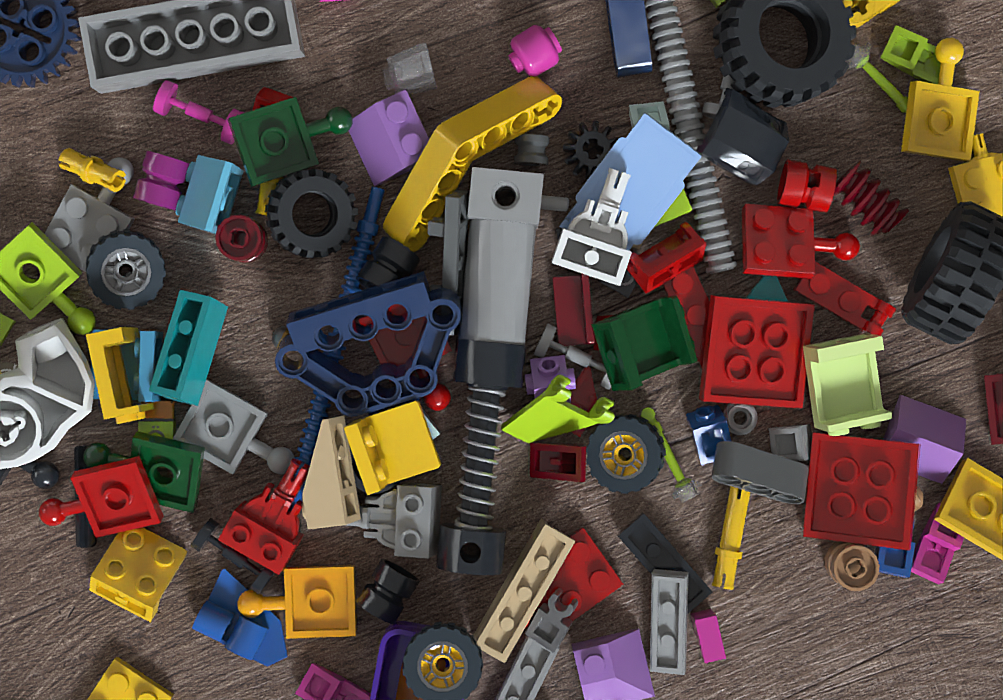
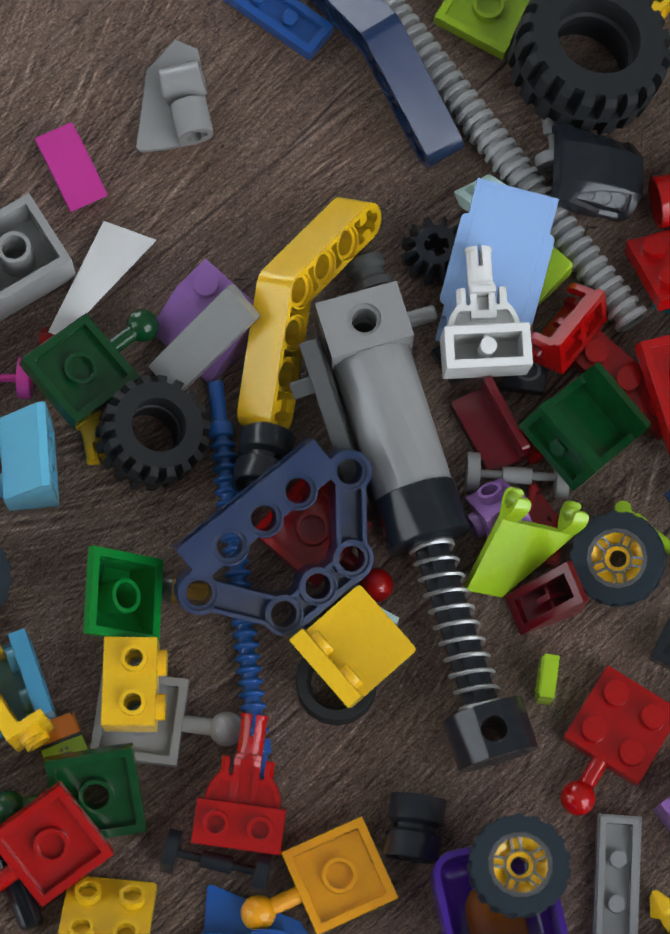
camera: 25 degrees left, 15 degrees down
(188, 347) = (69, 658): teal brick -> none
(215, 403) = (133, 684): none -> yellow brick
(237, 336) = (122, 594): none -> green slope
(241, 239) = (83, 493): dark red wheel -> none
(330, 484) = (296, 723): tan slope -> none
(334, 53) = (106, 262): none -> white sticker
(379, 155) = (206, 338): none -> light grey tile
(404, 519) = (397, 736): light grey brick -> none
(410, 71) = (201, 236): clear slope -> none
(522, 590) = (572, 756): tan panel -> none
(532, 521) = (546, 679): none -> lime tile
(534, 51) = (328, 171): dark pink head -> none
(551, 622) = (620, 788): flat silver plate -> none

